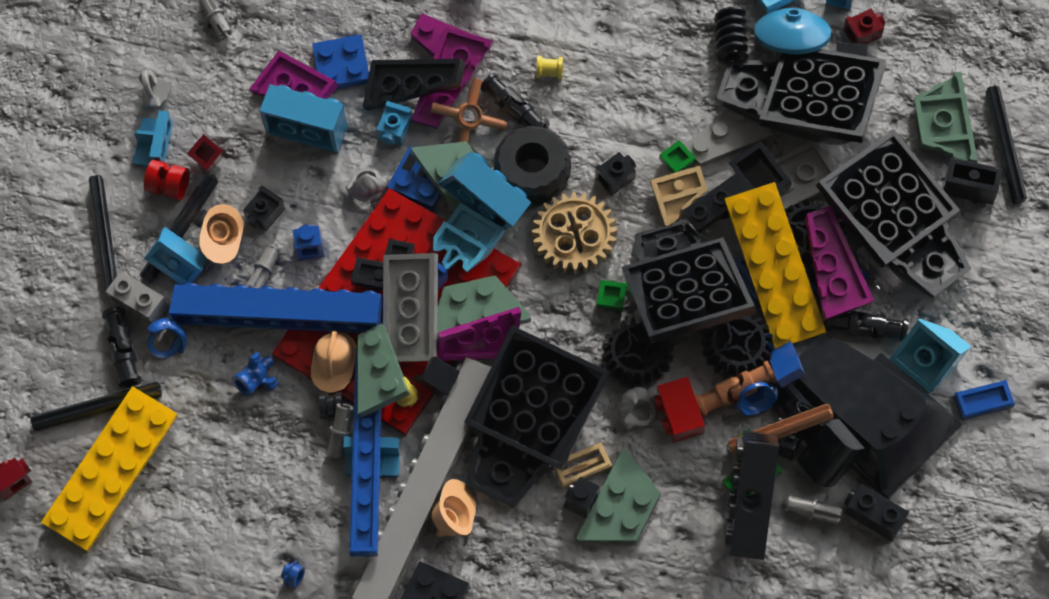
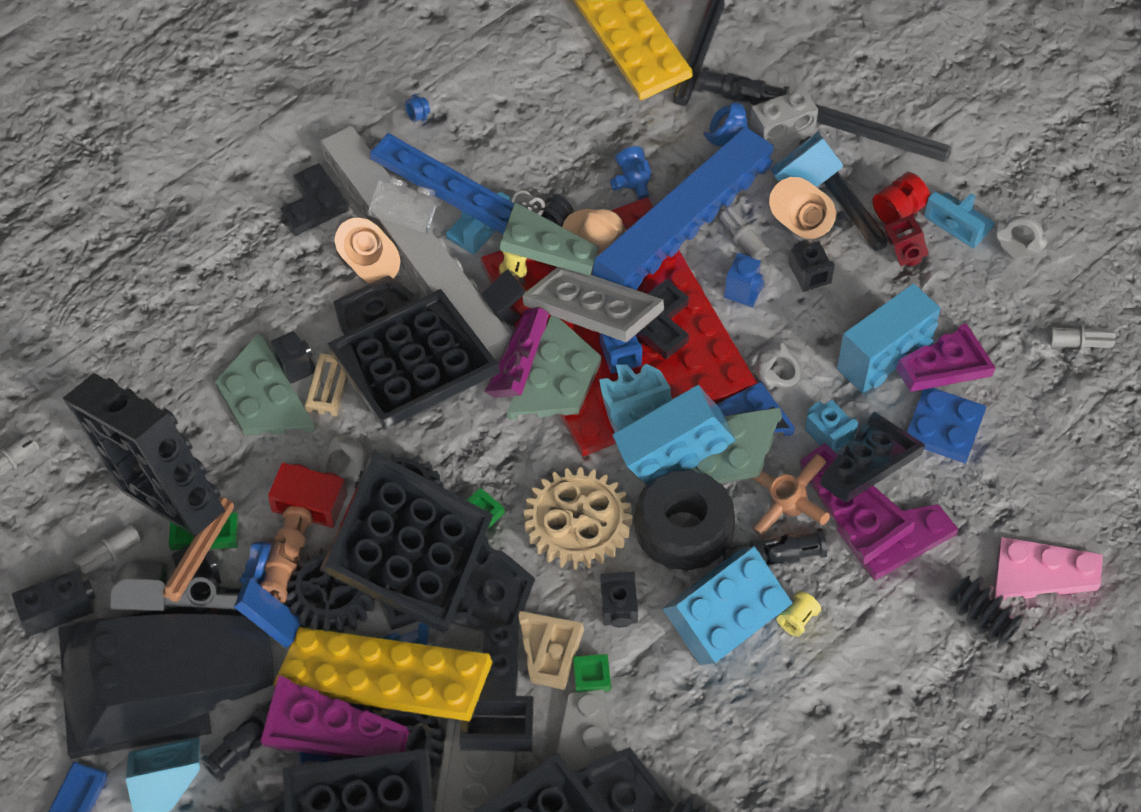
camera: 120 degrees right, 10 degrees down
(407, 496) = (404, 206): none -> clear bracket
(580, 100) = (727, 606): none -> dark azure brick

